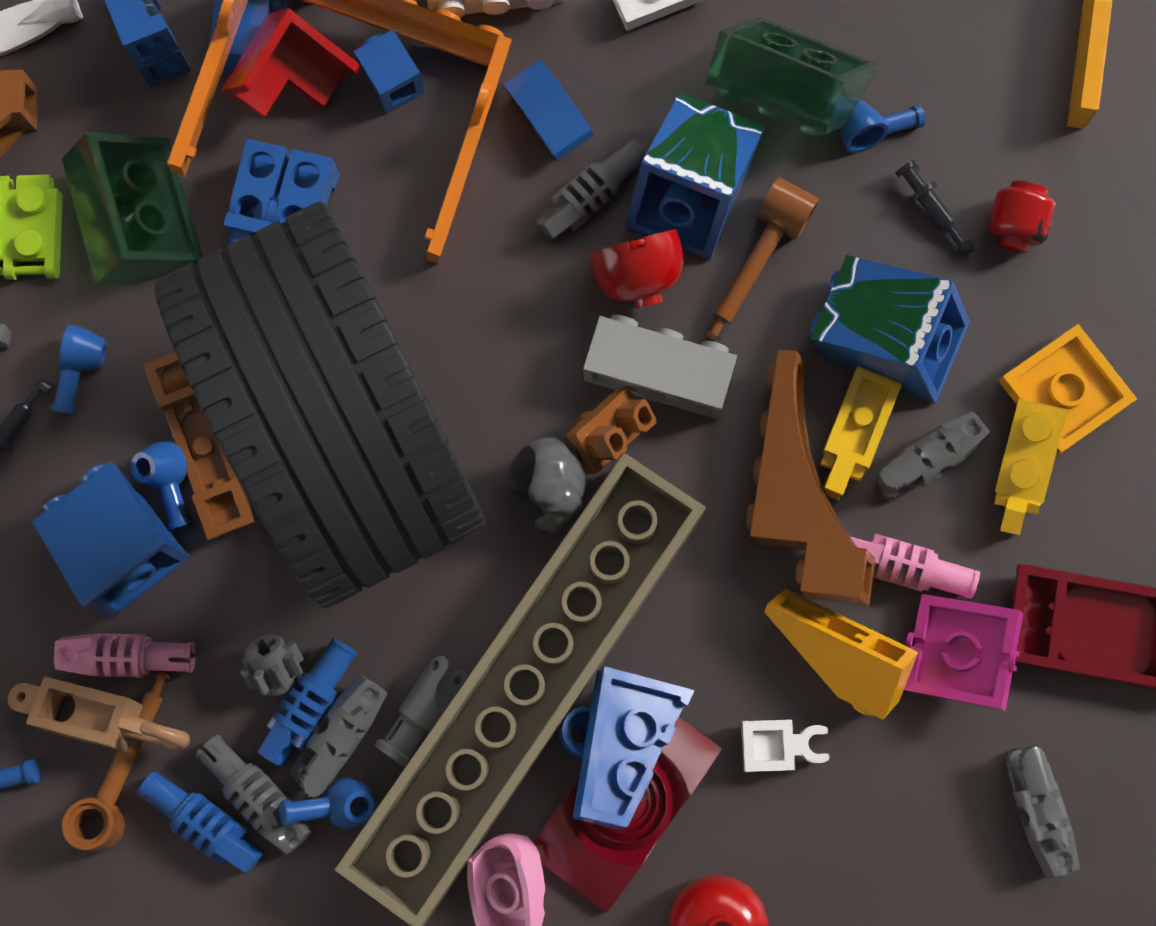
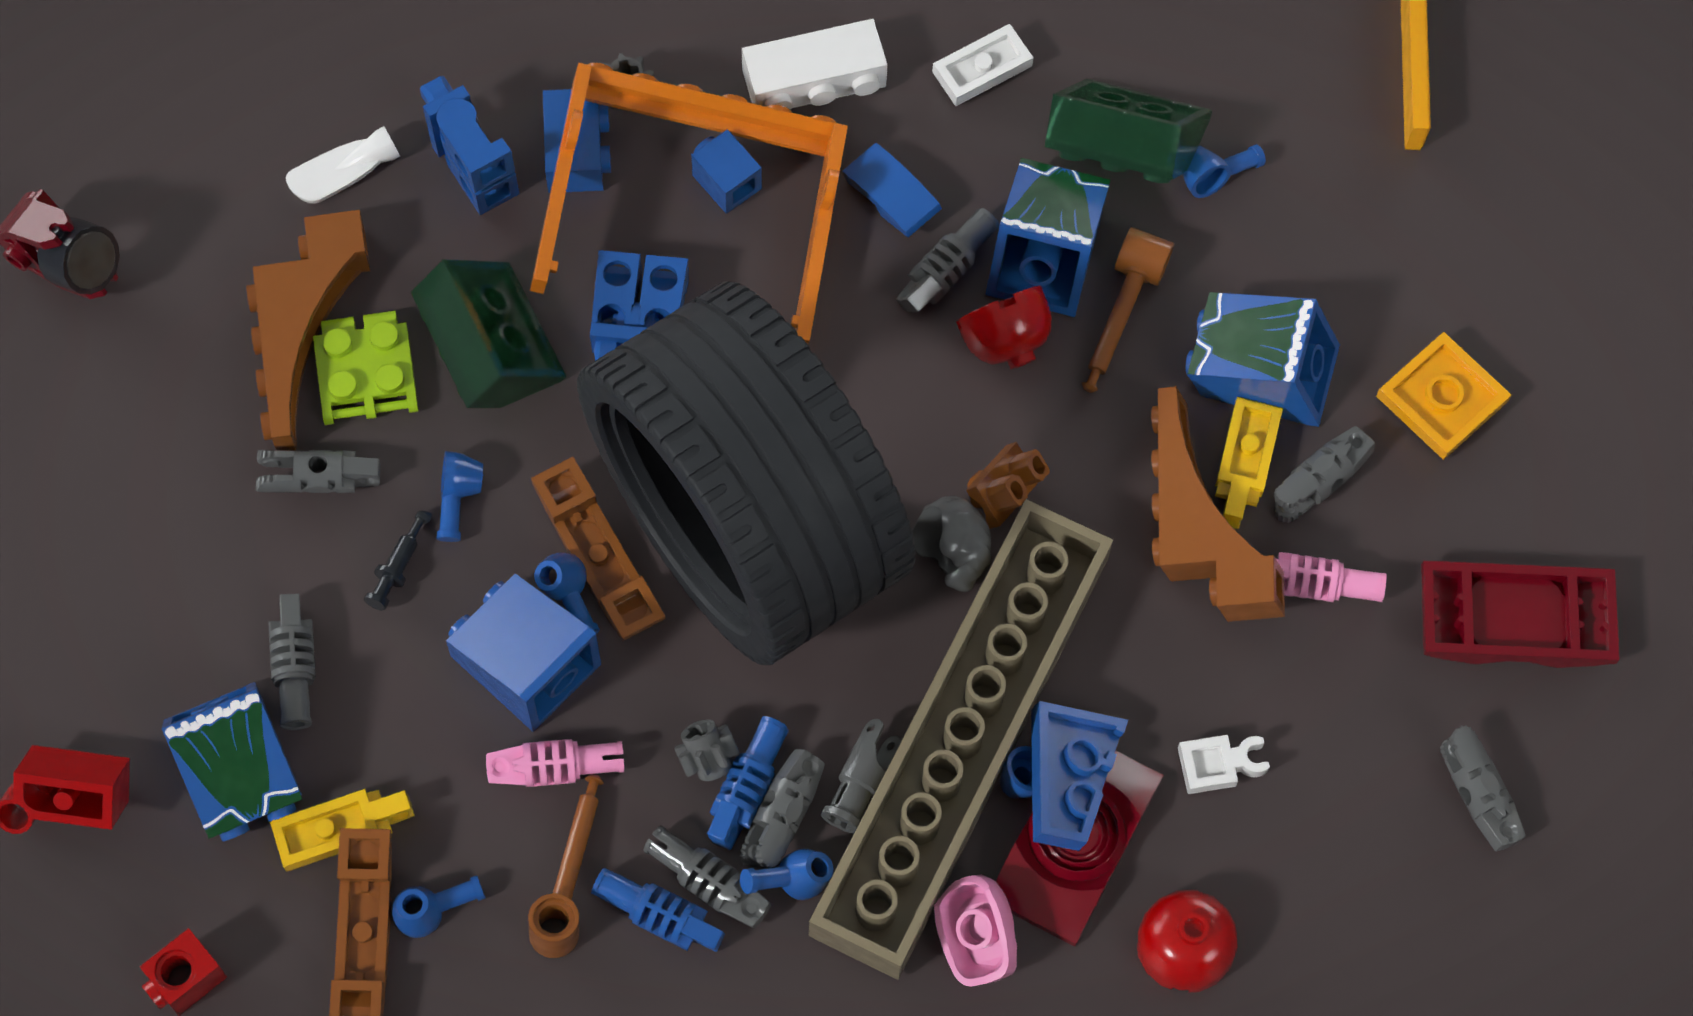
camera: 15 degrees left, 10 degrees down
(97, 718) = (542, 821): medium nougat piece -> none
(290, 54) = (632, 165): red panel -> none
(660, 365) = (1044, 418): light grey brick -> none
(846, 655) = (1271, 667): light orange slope -> none
(932, 204) = (1285, 237): black piece -> none
(964, 651) = (1381, 649): dark pink plate -> none
(1022, 216) = (1373, 237): red head -> none
(1028, 461) = (1416, 465): yellow hinge -> none

